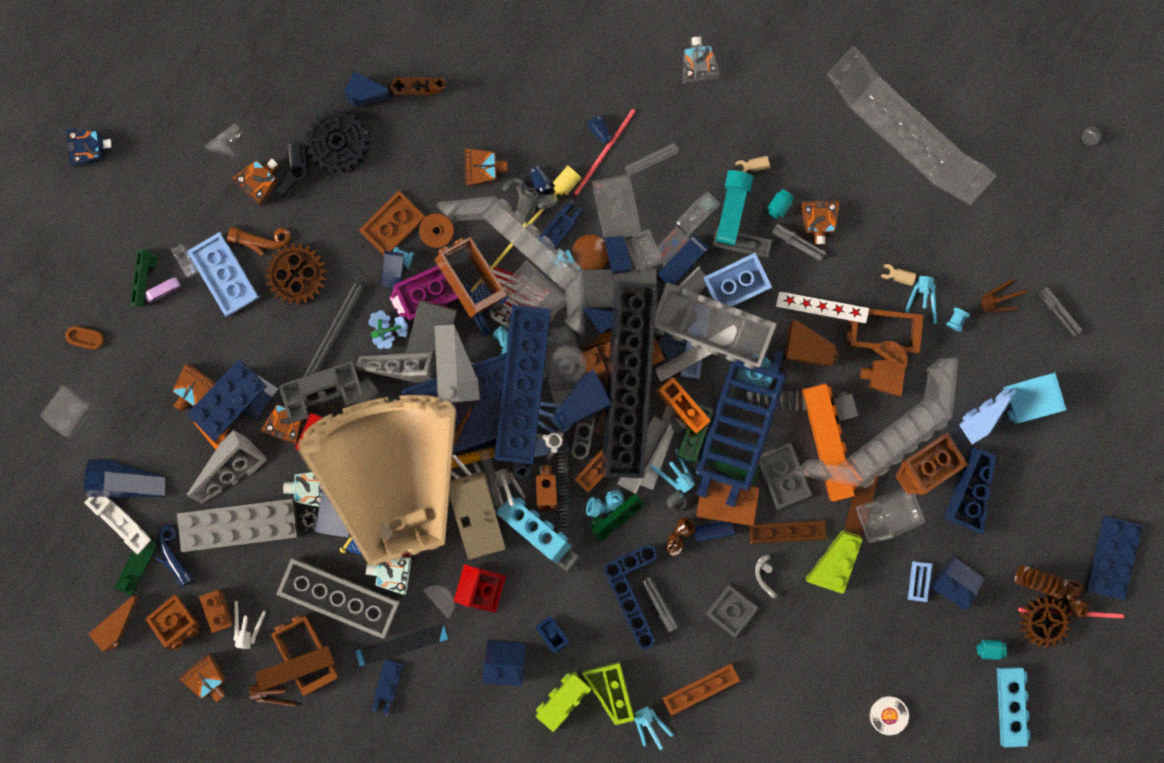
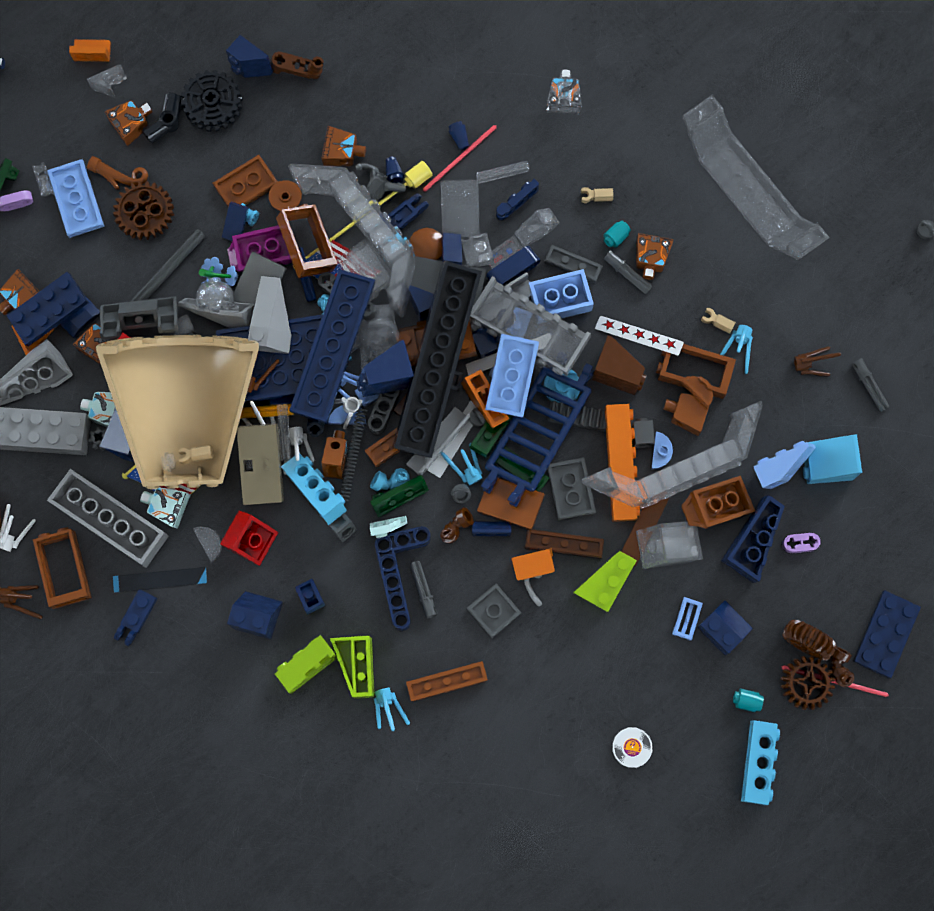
camera: 10 degrees right, 10 degrees down
(198, 109) = (91, 50): none -> orange panel
(294, 668) = (46, 576): reddish brown tile -> none
(391, 354) = (214, 294): none -> clear cylinder
(612, 552) = (381, 528): none -> light aqua wing
(671, 188) = (517, 200): none -> dark blue hinge
(706, 380) = (512, 375): none -> light blue plate
(737, 186) = (578, 210): teal beam -> none
(762, 559) = (533, 564): none -> orange panel
(865, 420) = (662, 451): none -> light blue plate
(958, 319) = (769, 372): medium azure bush -> none
(1019, 489) = (801, 547): none -> lavender beam

